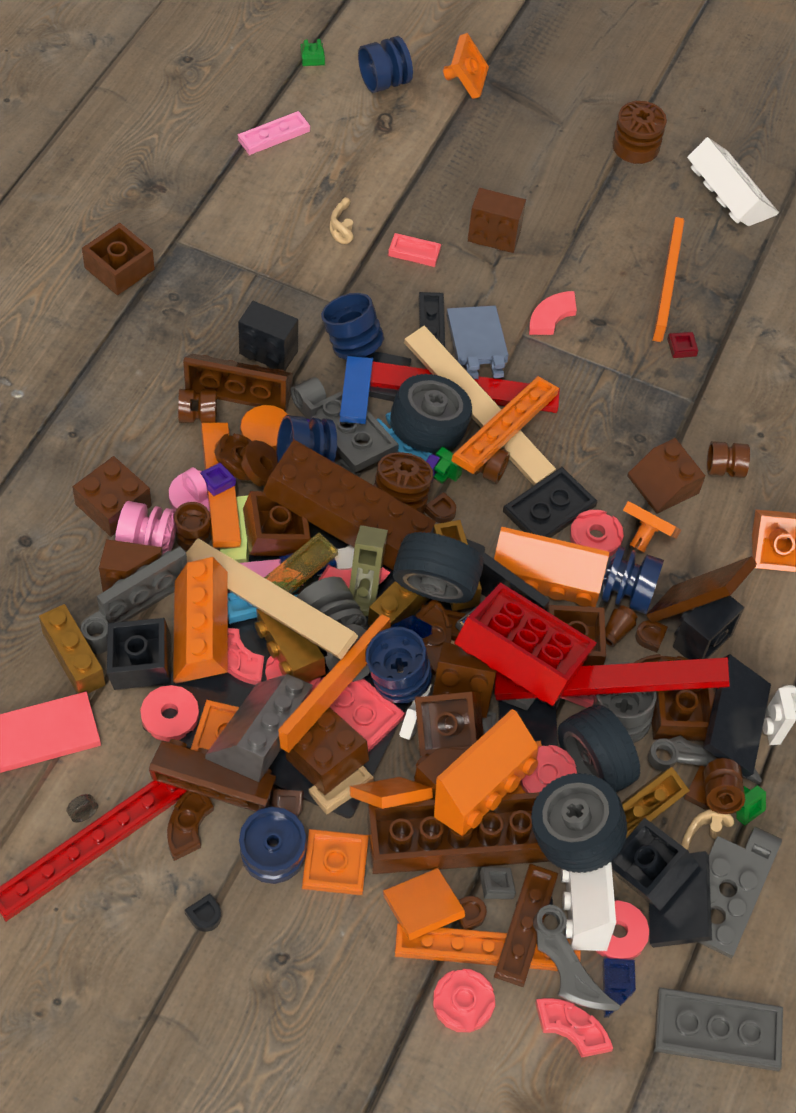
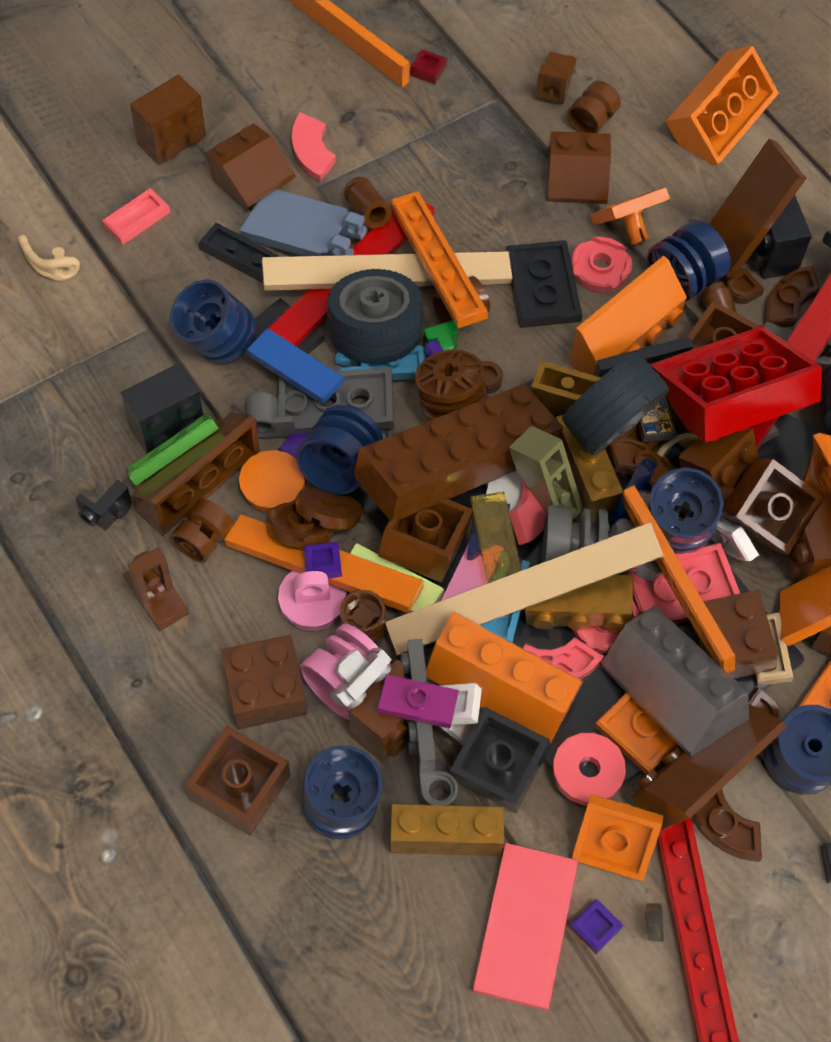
camera: 55 degrees left, 5 degrees up
(32, 516) = (238, 780): none -> reddish brown brick
(57, 573) = (344, 773): none -> dark blue wheel
(61, 777) = (596, 926): none -> dark purple tile
(126, 750) = (617, 837): none -> orange tile
(132, 526) = (358, 675): none -> piece
(135, 571) = (418, 701): none -> magenta plate
(140, 401) = (153, 588): none -> reddish brown bracket
(154, 603) = (465, 712): none -> white bracket
(179, 348) = (109, 508): none -> black bracket
(244, 357) = (172, 448): none -> bright green tile
(500, 283) = (249, 165): none -> reddish brown slope
(525, 364) = (367, 202): none -> reddish brown piece
(737, 426) = (555, 77): none -> reddish brown bracket

